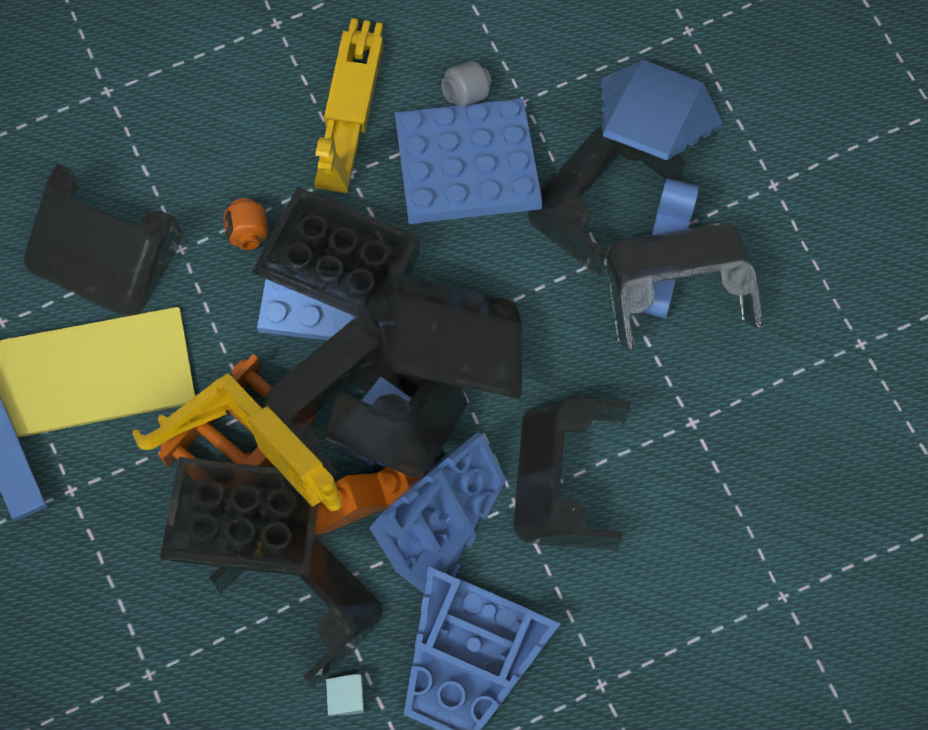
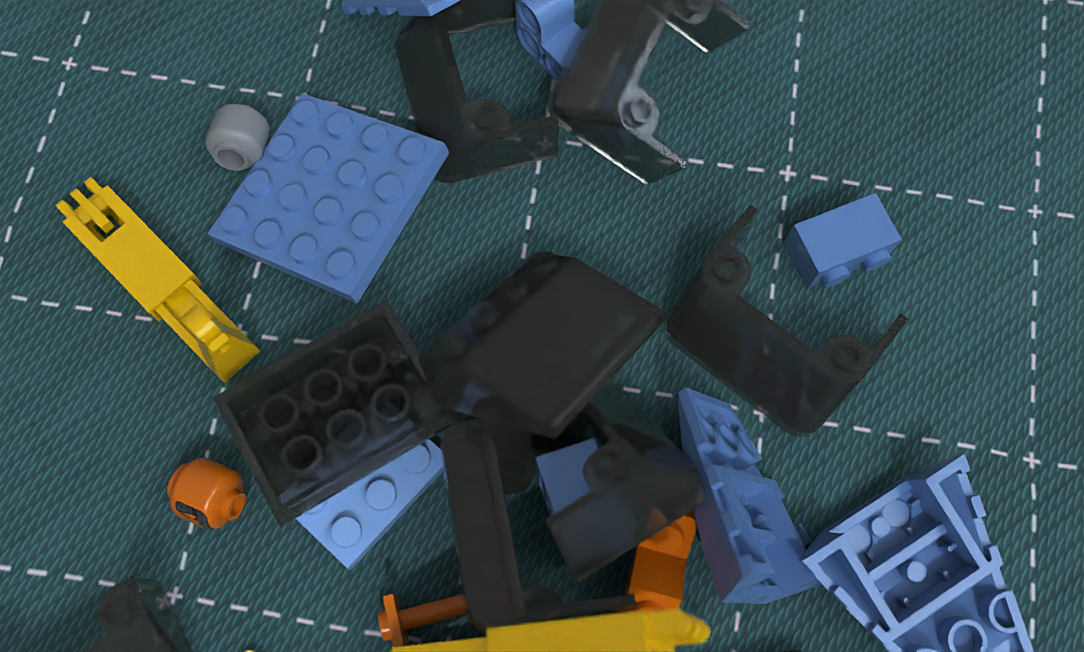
camera: 55 degrees left, 0 degrees up
(660, 481) = (842, 241): none -> medium blue brick

